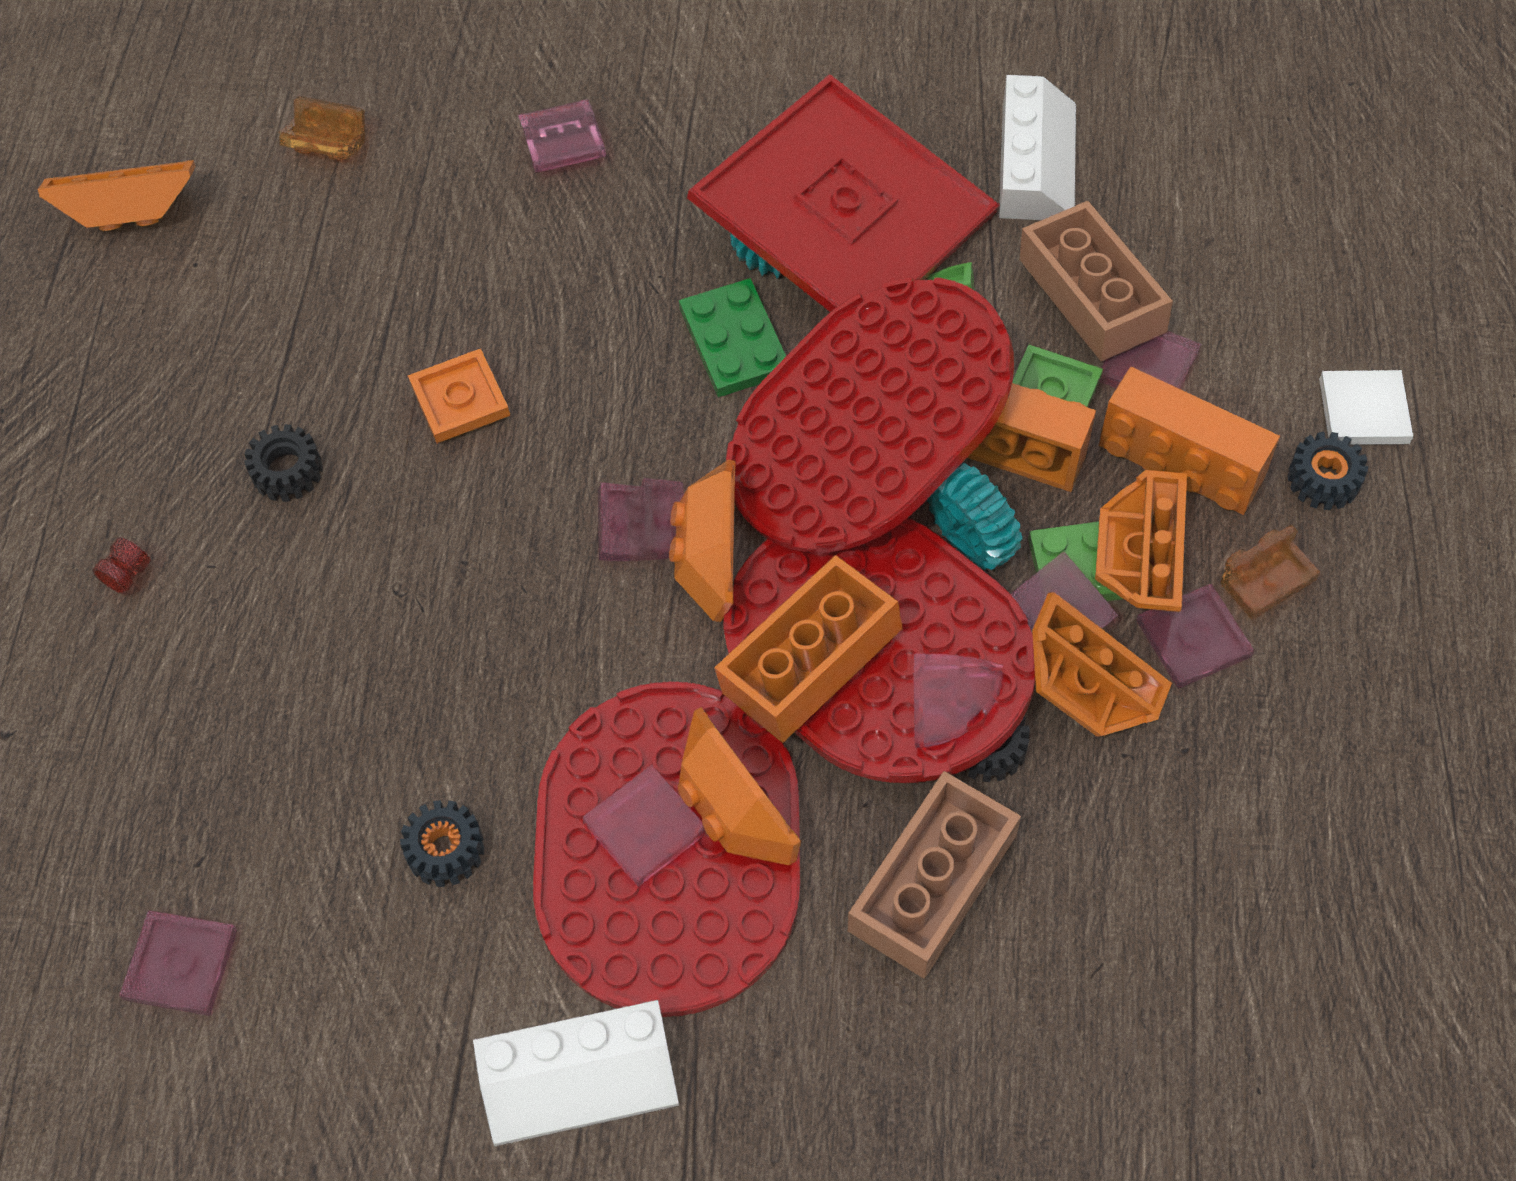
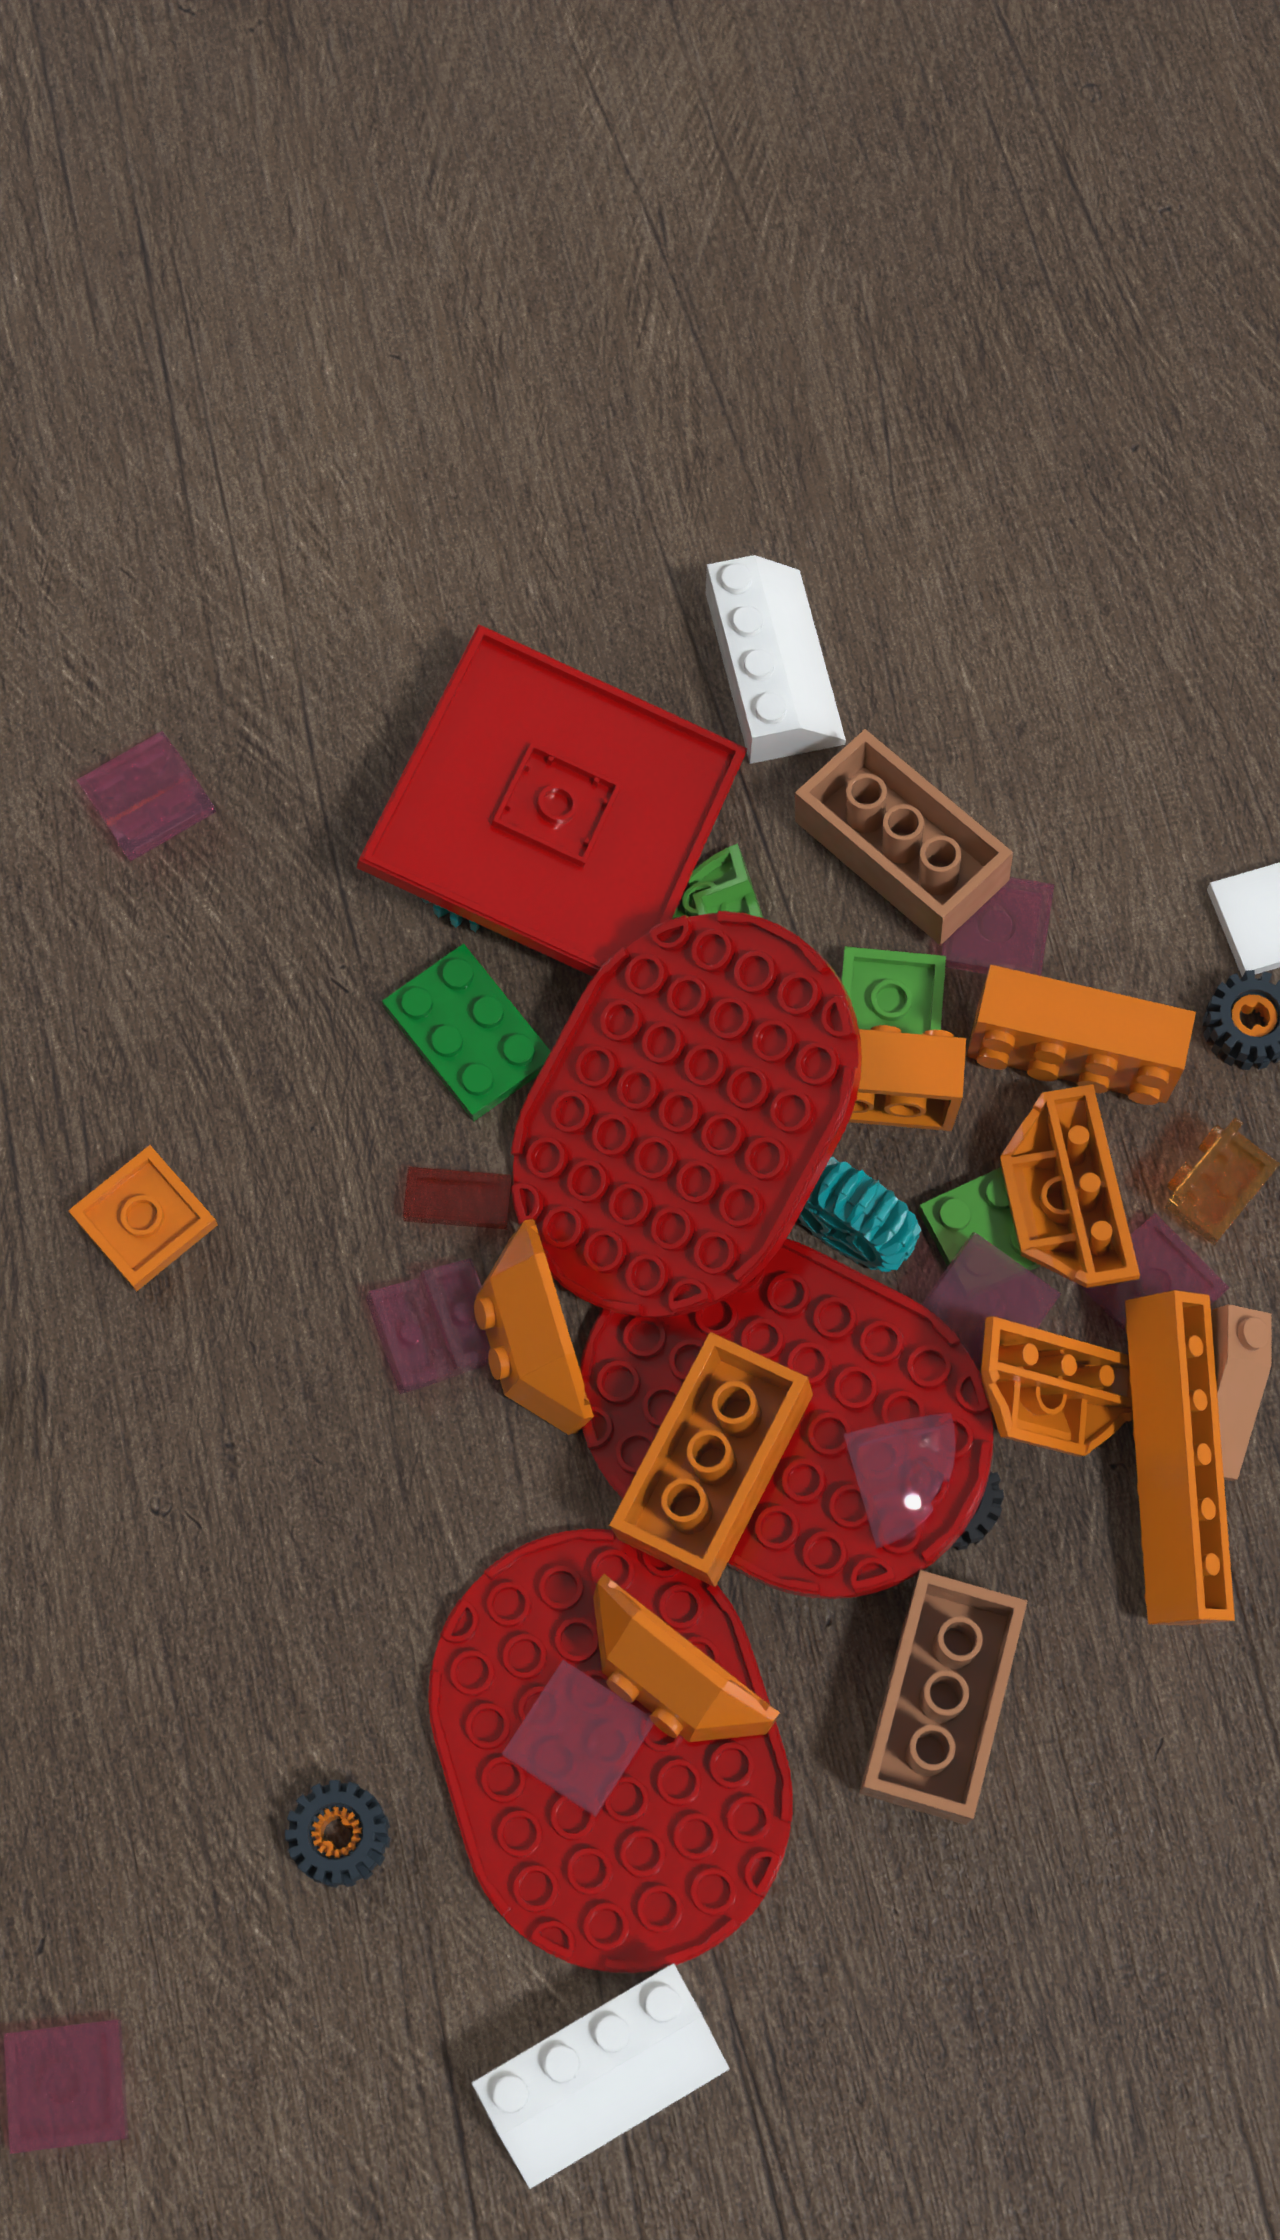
camera: 20 degrees left, 10 degrees up
(687, 441) = (457, 1198): none -> clear red tile
(1174, 755) = (1179, 1459): none -> orange brick
(1229, 715) = (1242, 1368): none -> nougat slope

